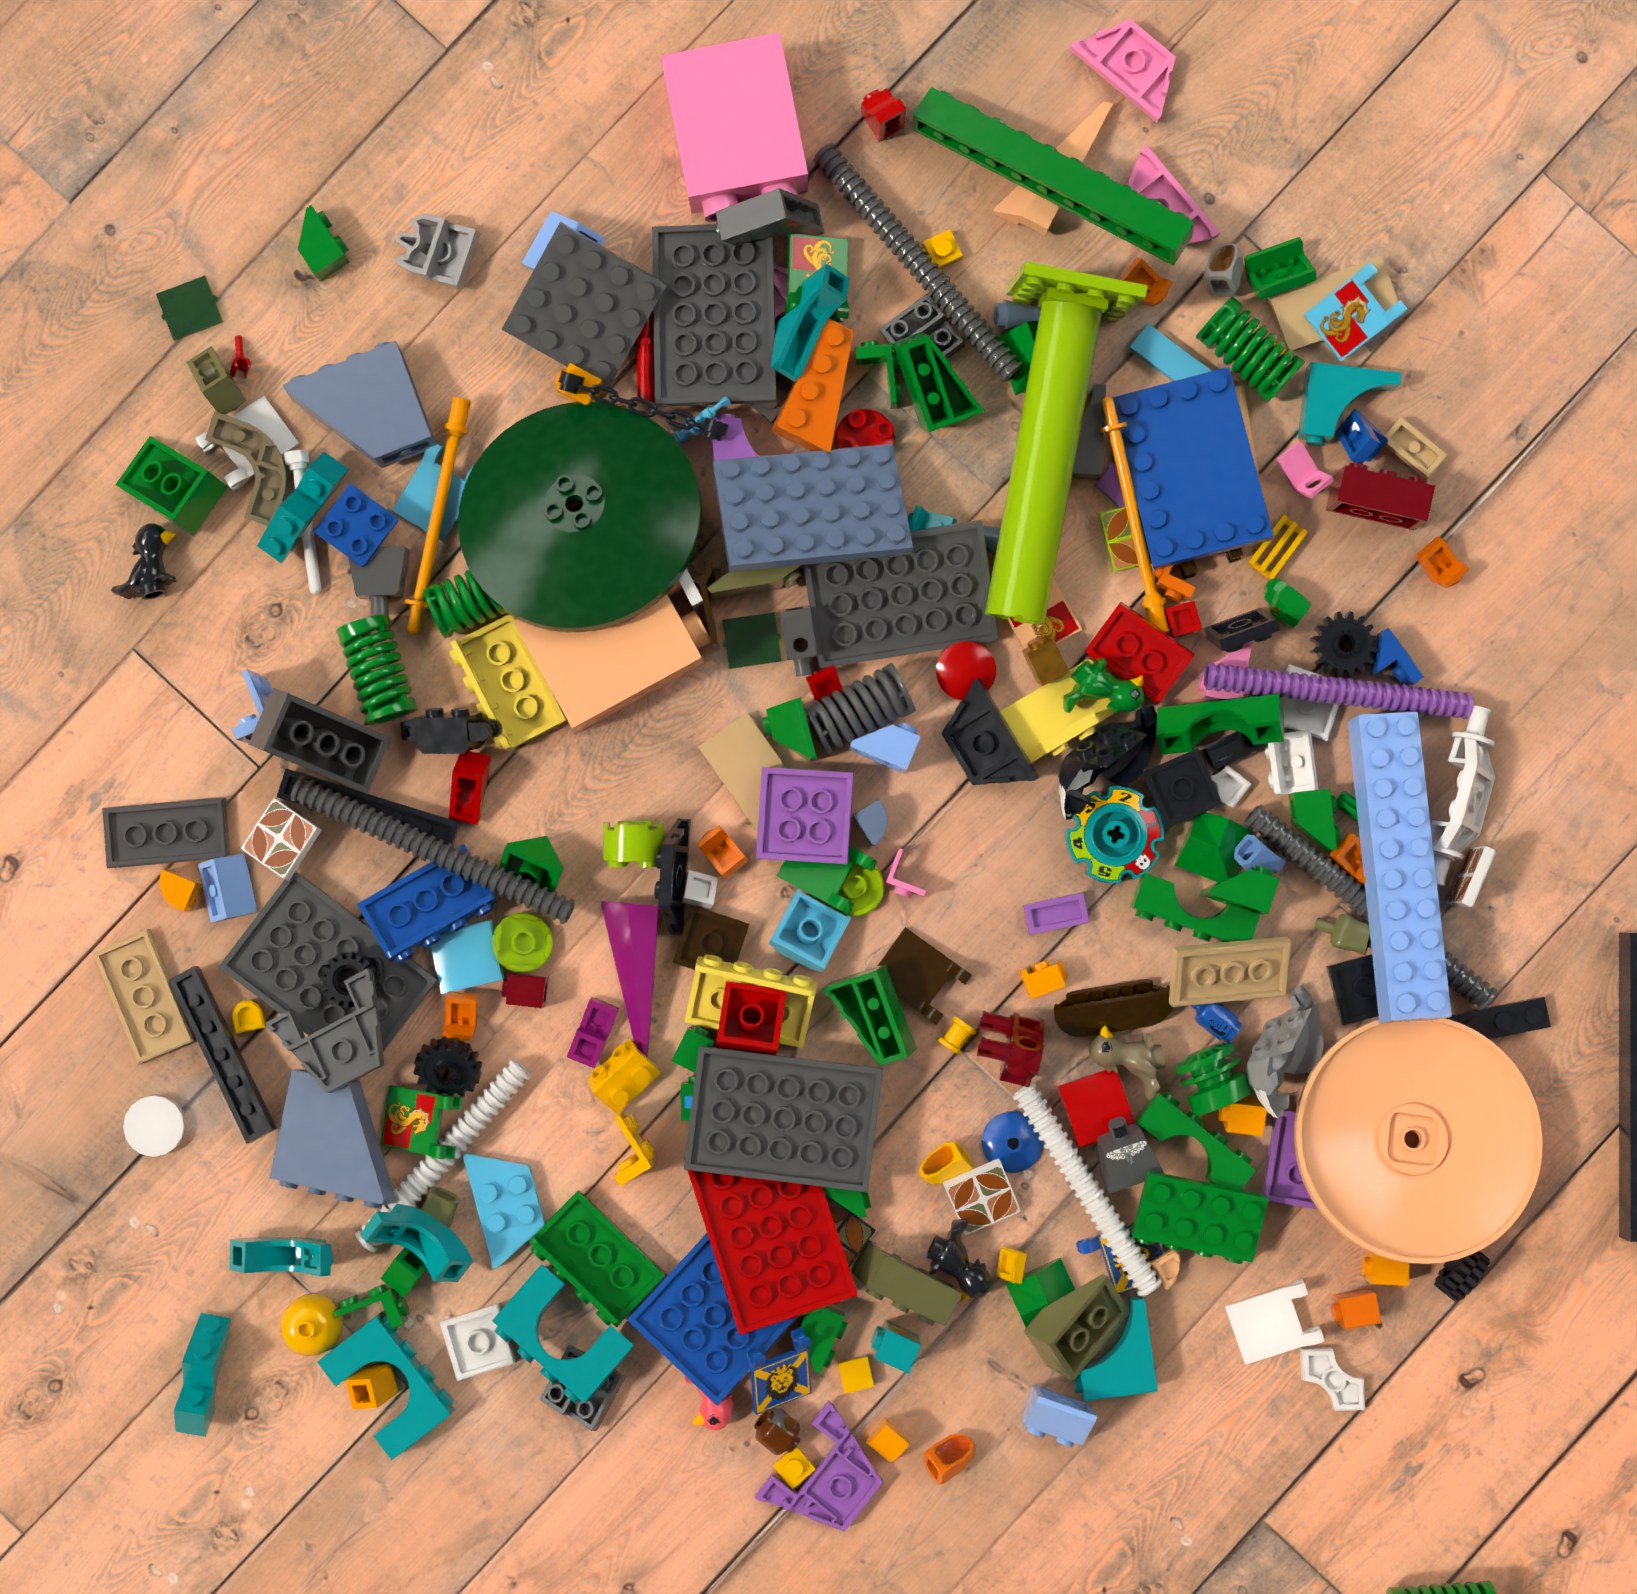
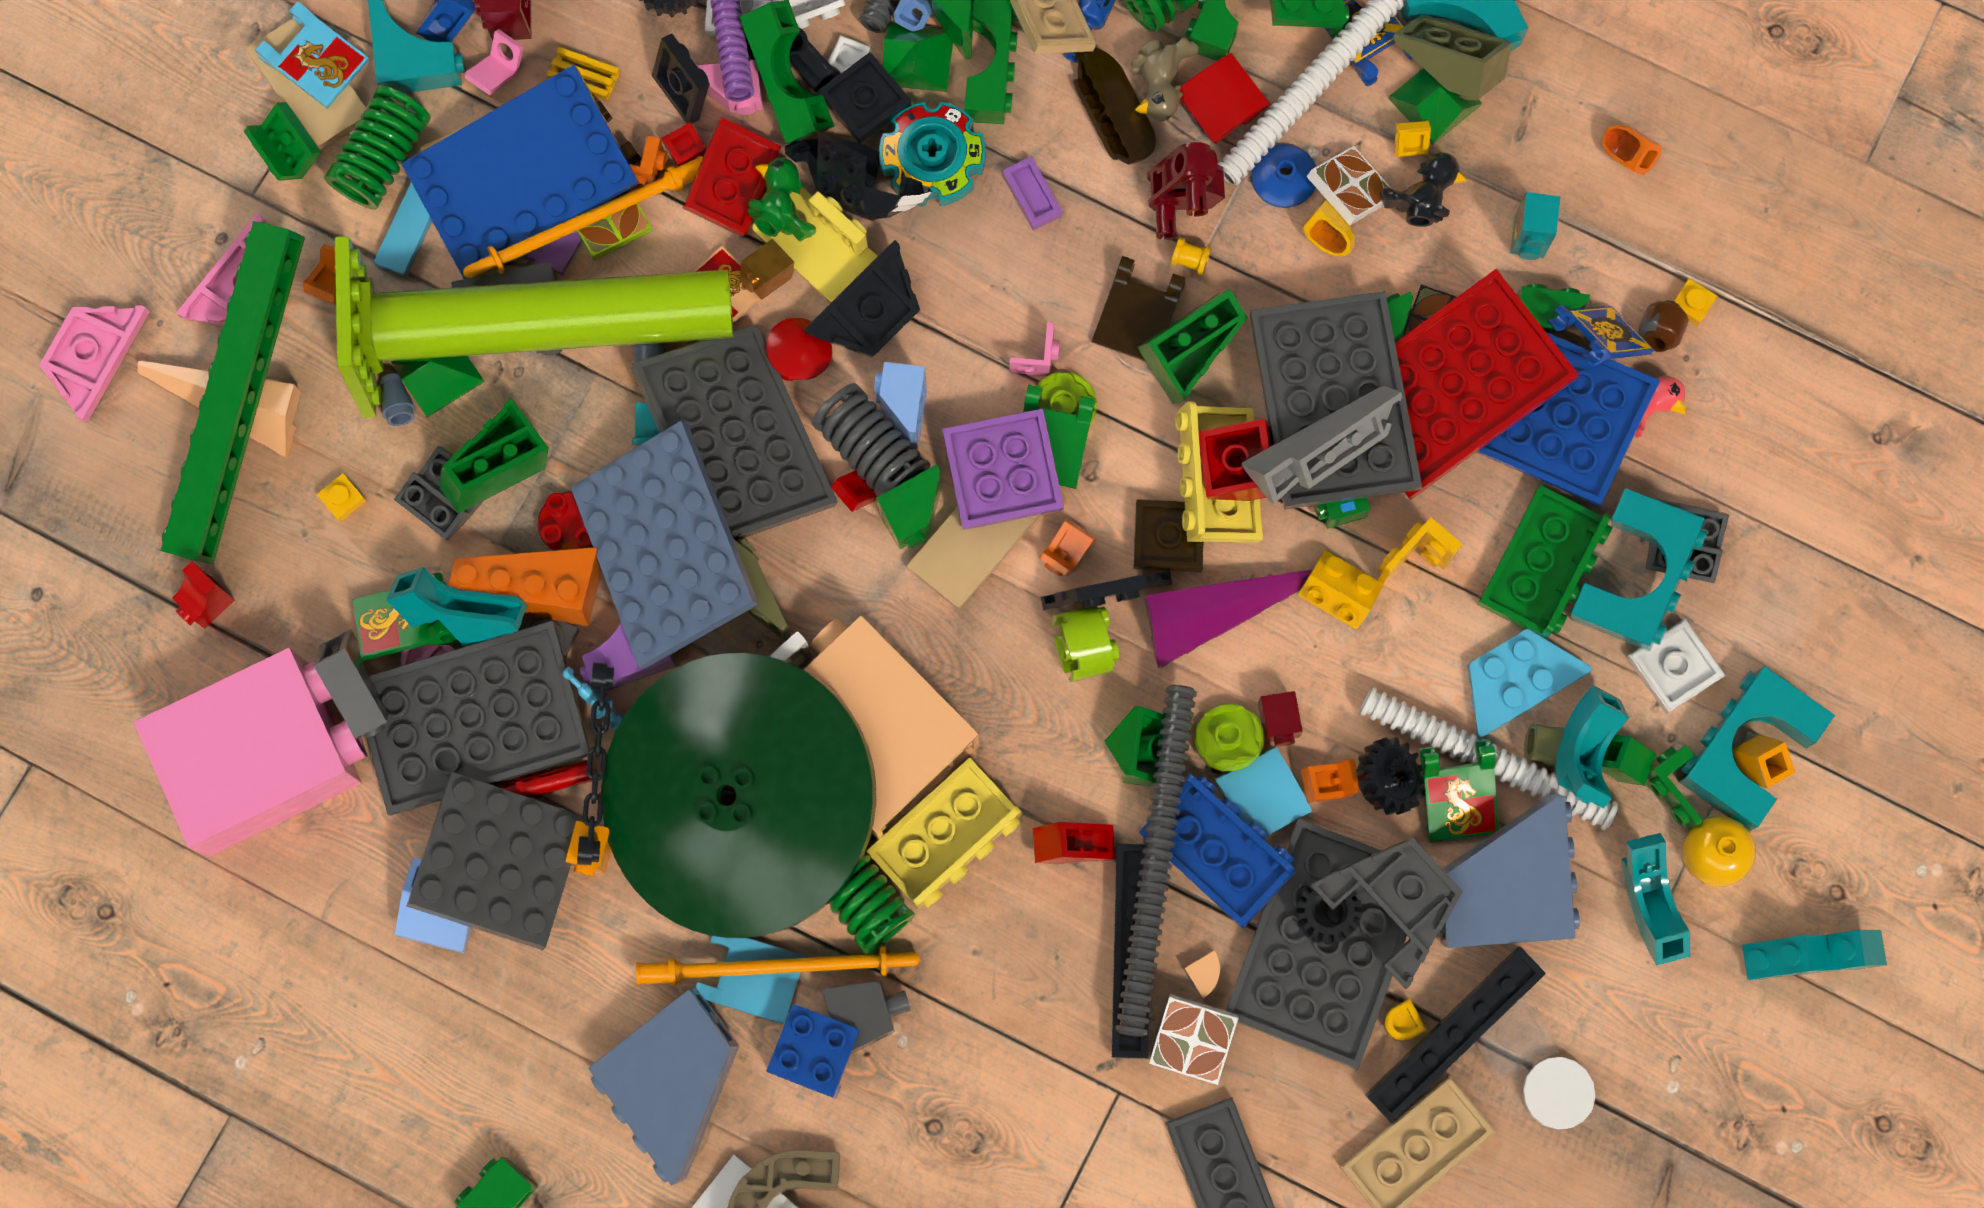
camera: 105 degrees left, 10 degrees down
(179, 890) = (1284, 1140): light orange brick -> none
(227, 887) = (1267, 1087): light blue panel -> none
(260, 690) = (1075, 1101): light blue bracket -> none
(297, 462) = (758, 1147): white piece -> none
(302, 506) = (808, 1121): teal arch -> none
(319, 740) = (1070, 1016): dark grey brick -> none
(334, 864) = (1204, 974): none -> light nougat tile
(373, 702) = (969, 978): green piece -> none
(438, 250) = (470, 1053): light grey plate -> none
(449, 732) = (1018, 879): black hinge -> none
(593, 1032) = (1303, 636): magenta slope -> none
(687, 1051) = (1289, 524): green brick -> none
(699, 889) = (1114, 562): white plate -> none
(702, 582) = (808, 629): dark brown flag -> none
(738, 1093) = (1323, 445): none -> light grey wedge
(751, 640) = (826, 585): clear green piece -> none
(798, 624) = (808, 529): dark grey torso -> none
(809, 932) = (1127, 434): medium azure slope -> none
(837, 1486) = (1698, 250): medium lavender wing -> none
(855, 1374) = (1576, 265): yellow tile -> none
(872, 821) = (988, 399): sand blue brick -> none
(873, 353) = (481, 515): green bracket -> none
(888, 1440) = (1634, 212): light orange brick -> none
(906, 1285) = (1468, 235): olive wedge -> none
(917, 262) = (361, 516): dark grey piece -> none
(1043, 978) = (1105, 184): light orange brick -> none
(1058, 1416) = (1551, 50): light blue slope -> none
(1125, 1156) = (1265, 54): dark grey torso -> none
(1224, 270) = (297, 198): light grey rock -> none
(1285, 603) = (639, 47): green rock -> none

